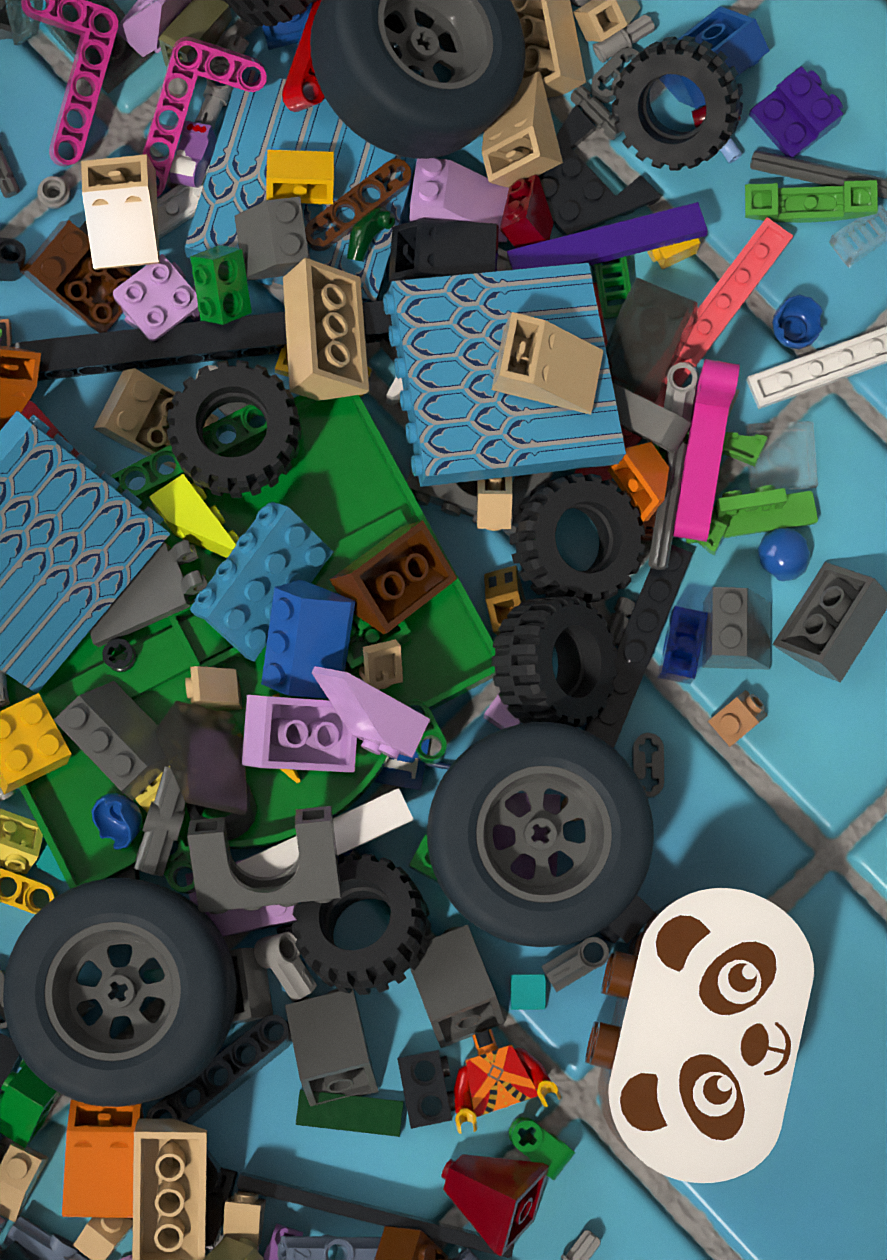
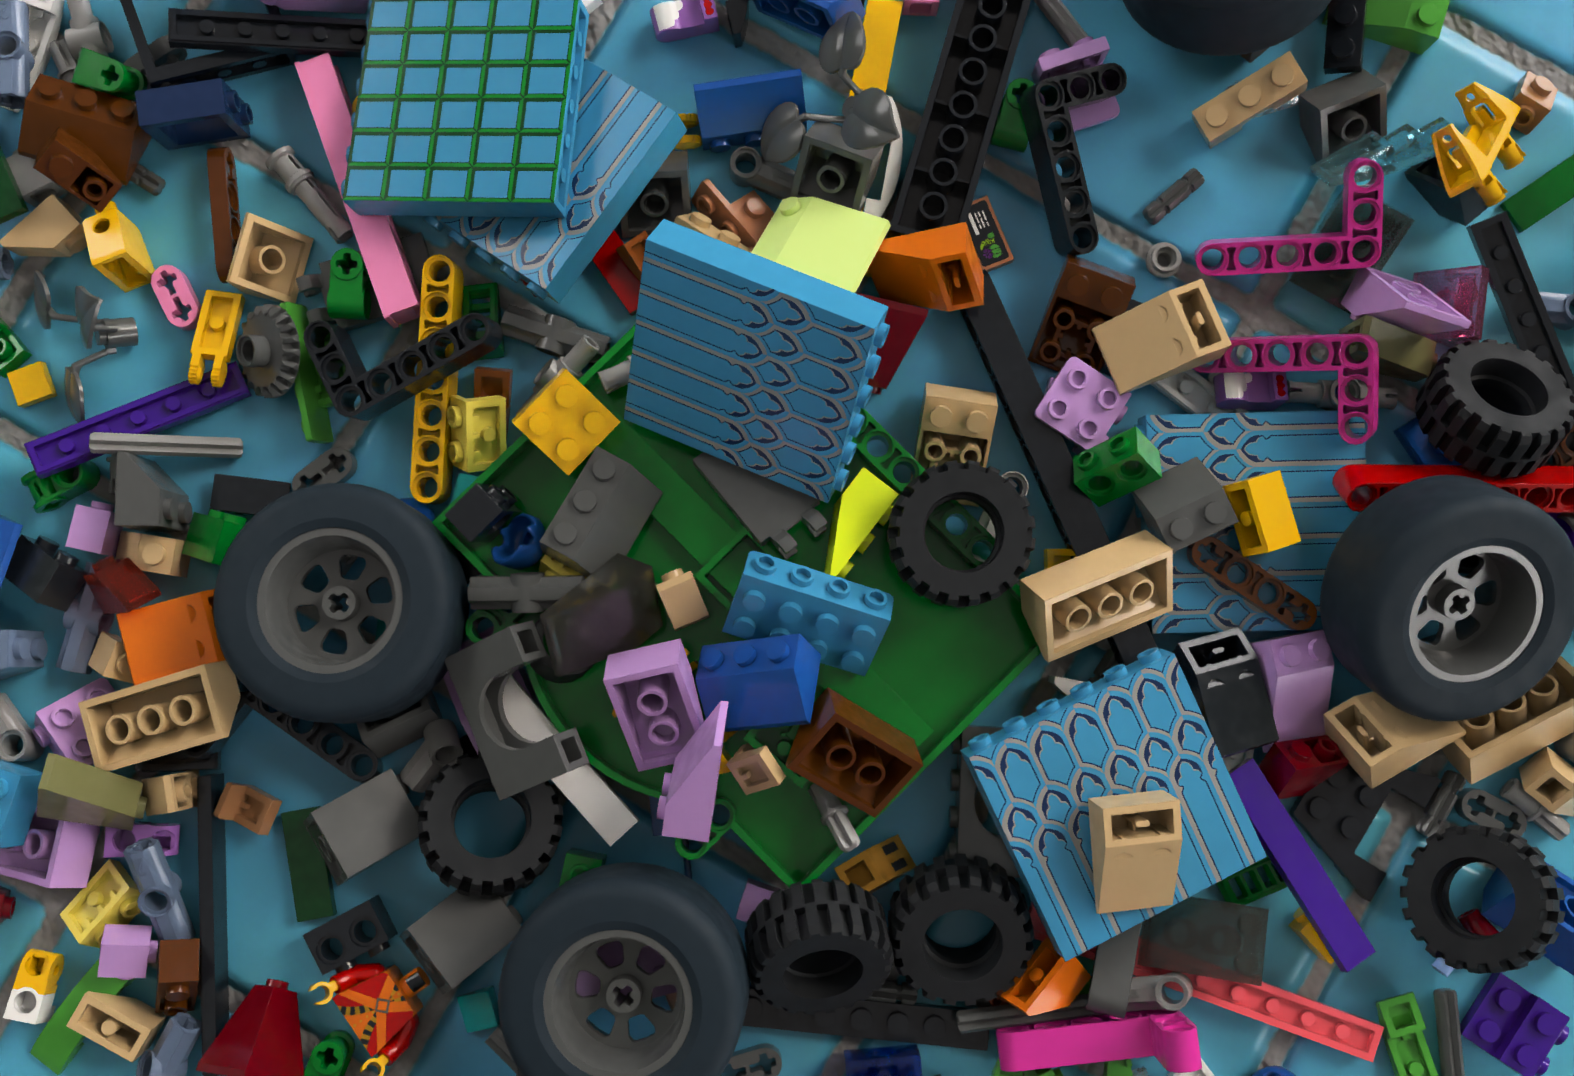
camera: 75 degrees right, 5 degrees up
(36, 1208) = (120, 585): none -> clear red slope
(78, 840) = (483, 512): none -> black brick
(120, 665) = (679, 493): black bush -> none
(280, 1151) = (248, 807): none -> medium nougat bracket
(366, 230) = (1227, 601): dark green arm -> none
(444, 614) = (835, 817): none -> light grey axle
(494, 503) = (969, 831): tan slope -> none

